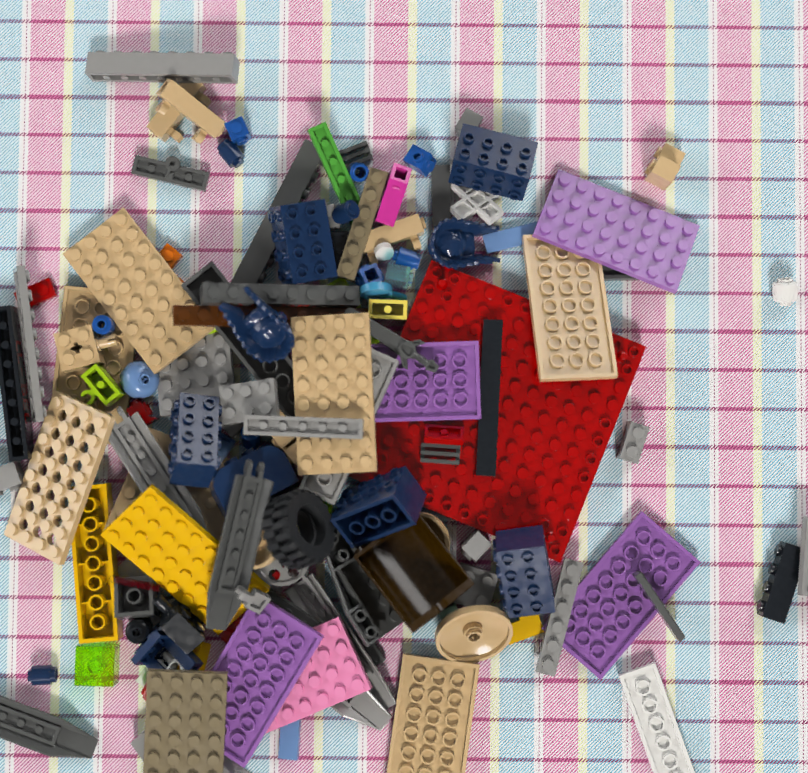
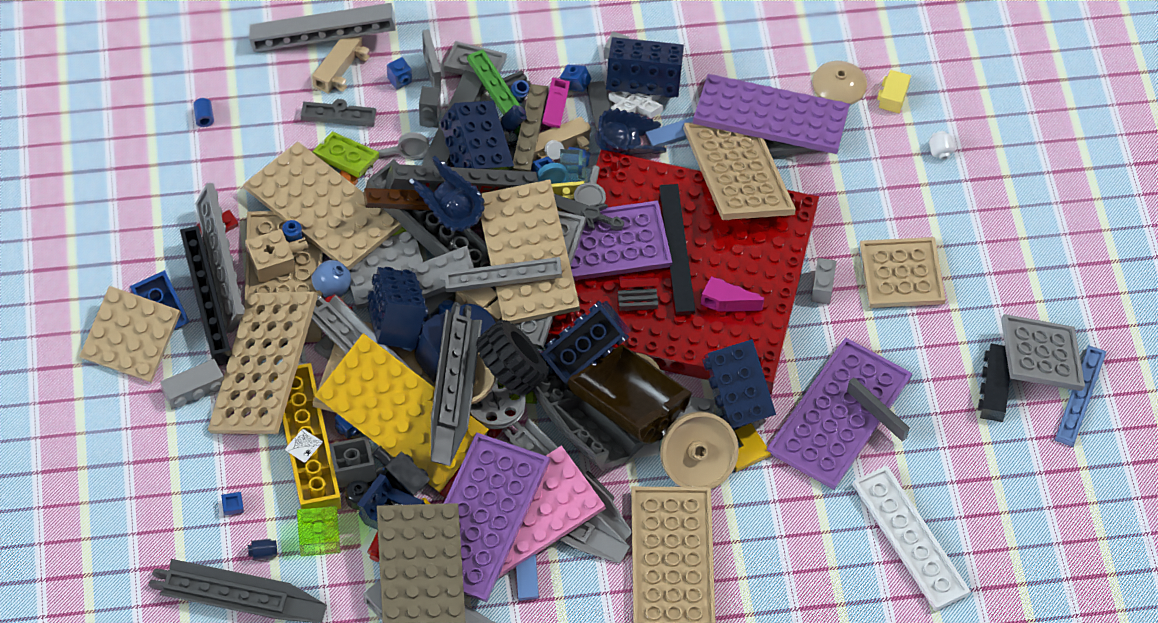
camera: 10 degrees left, 30 degrees down
(19, 620) = (232, 503): none -> blue plate
(32, 154) = (203, 112): none -> blue brick
(88, 578) = (303, 445): none -> white sticker
(101, 386) = (295, 278): lime brick -> none
(144, 585) = (354, 442): dark red piece -> none
(171, 227) = (346, 154): none -> lime piece
(191, 108) = (354, 55): tan brick -> none
(230, 153) = (394, 92): dark blue brick -> none
(235, 226) = (410, 146): none -> light grey piece
(254, 600) = (476, 428): light grey plate -> none
(262, 182) = (429, 106): none -> dark grey brick
(271, 120) = (431, 59): none -> light grey tile
(310, 114) = (457, 58): none -> light grey plate
(410, 321) = (590, 192): none -> light grey piece
(475, 546) = (689, 374): light grey brick -> none
(526, 464) = (727, 297): none -> dark pink slope
(558, 621) = (782, 434): light grey plate -> none
(665, 166) = (805, 60): tan brick -> none
(683, 200) = (840, 82): none -> tan dish
(714, 439) = (902, 272): none -> tan plate
(749, 216) = (894, 91): none -> light yellow brick

